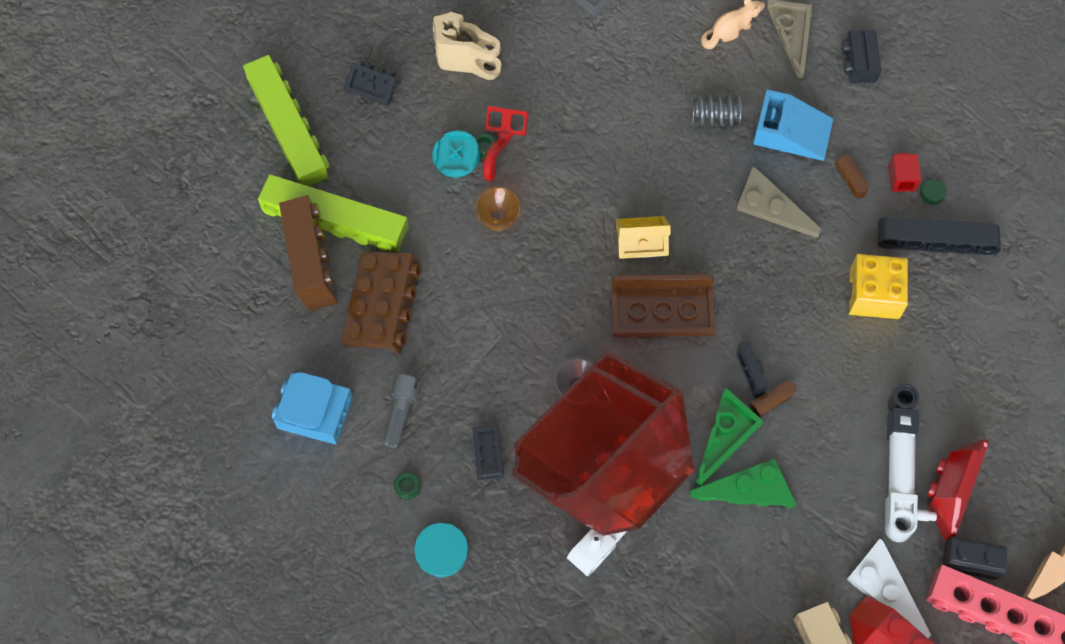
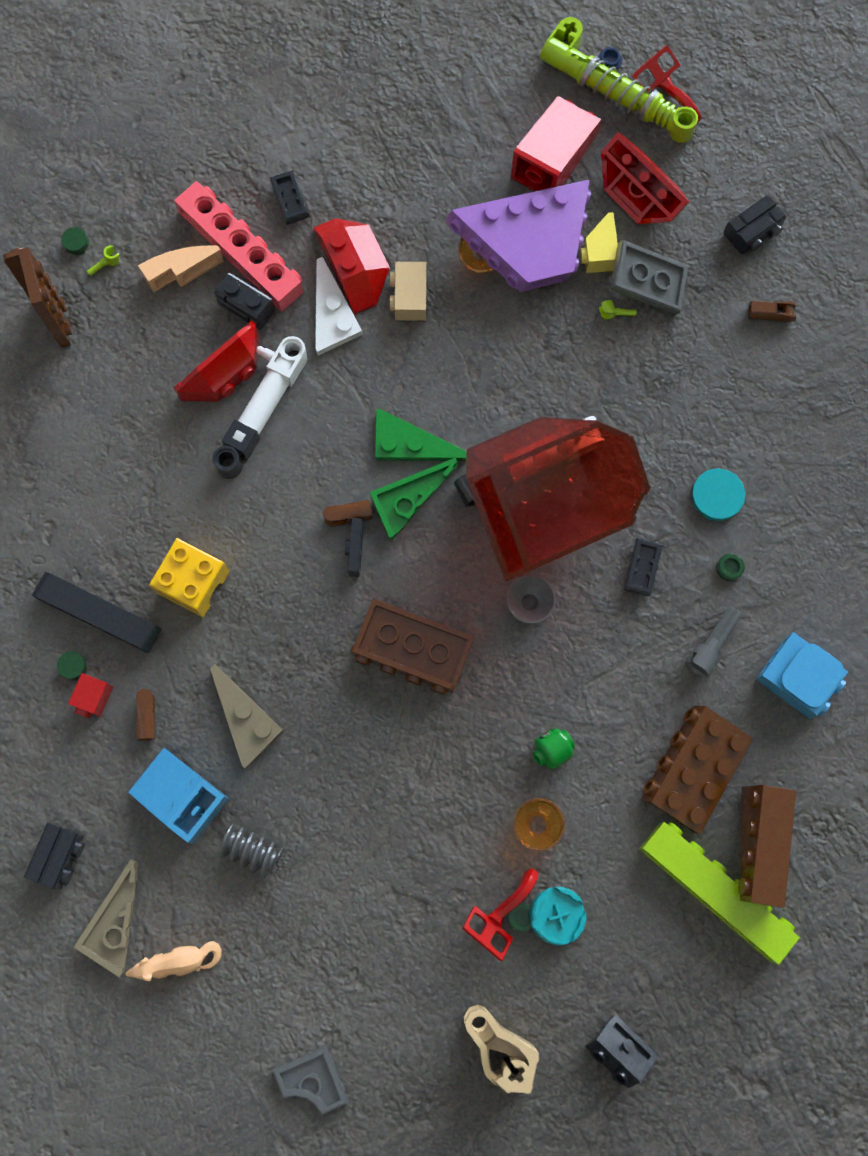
camera: 160 degrees left, 10 degrees up
(286, 122) = (738, 1040): lime brick -> none
(508, 270) = (553, 748): none -> green head
(643, 237) = (397, 734): yellow bracket -> none

